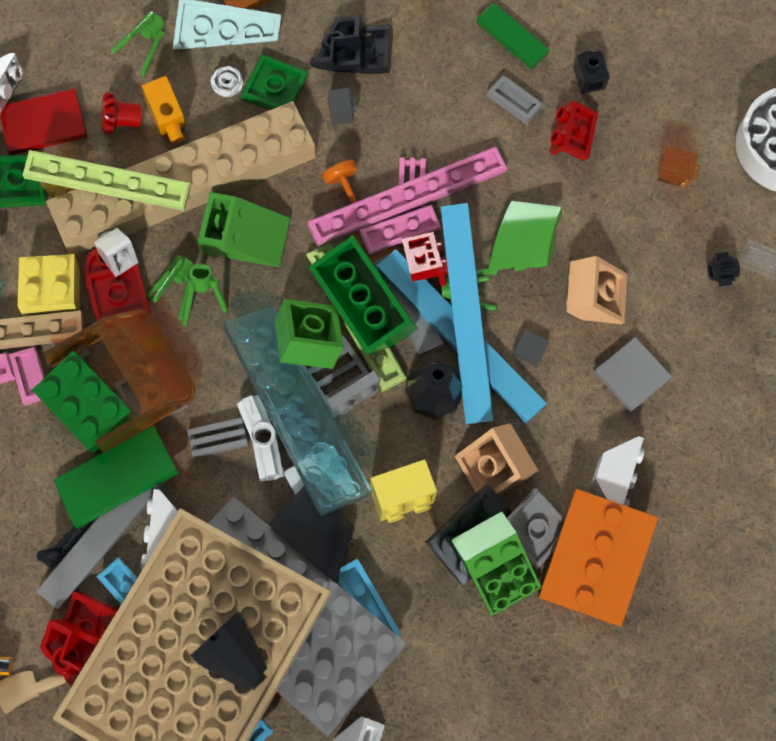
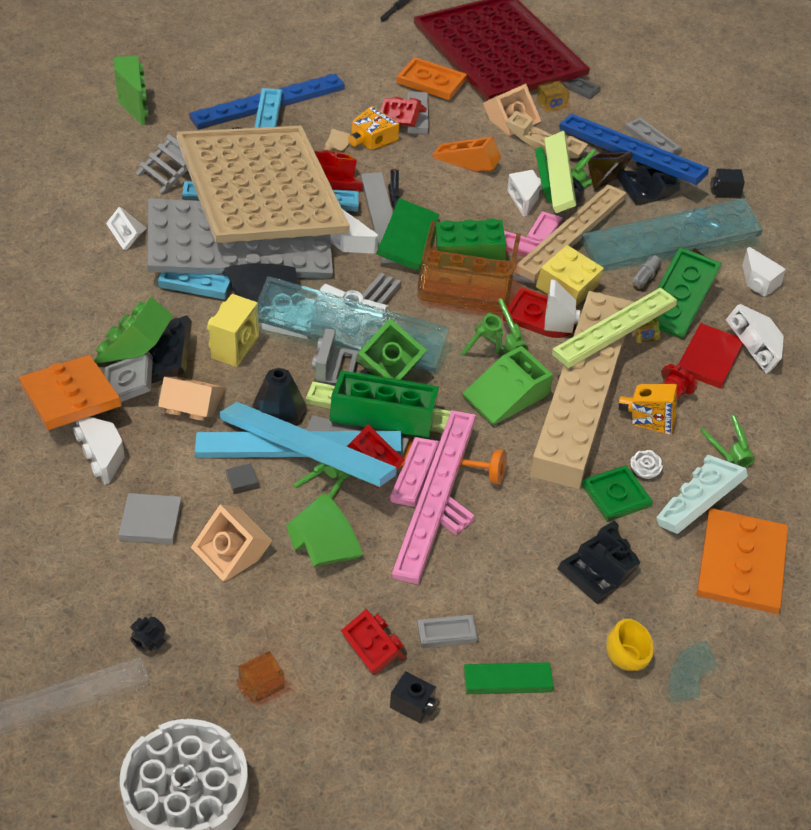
camera: 135 degrees right, 25 degrees down
(233, 654) = (236, 173): black cone -> none
(341, 106) = (555, 509): dark grey plate -> none

